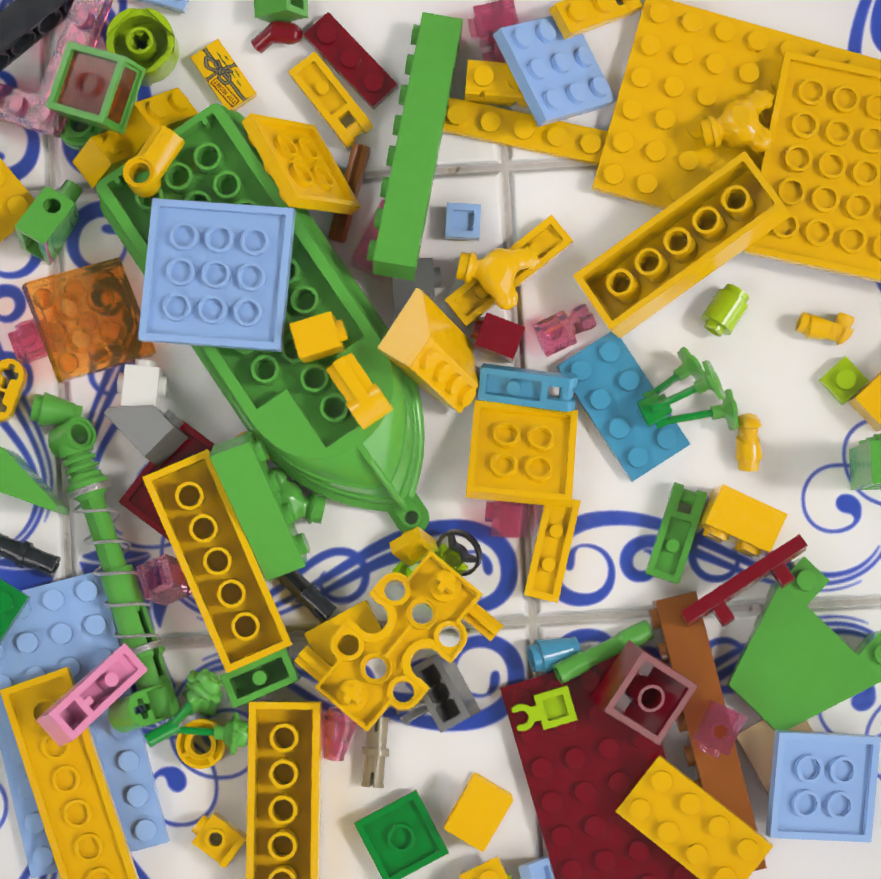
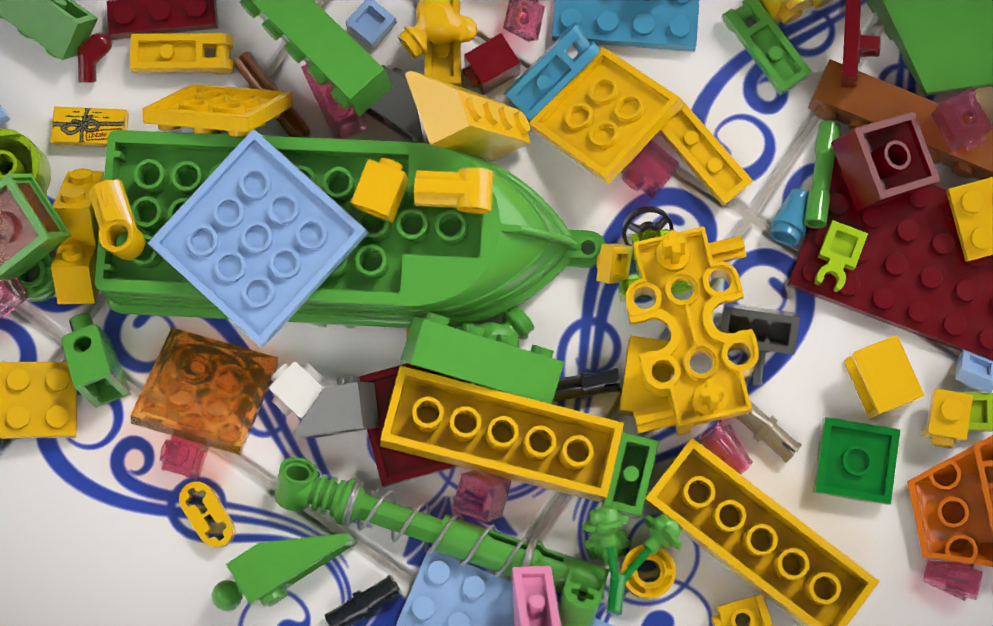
camera: 50 degrees left, 5 degrees down
(53, 410) = (258, 484): bright green cone -> none

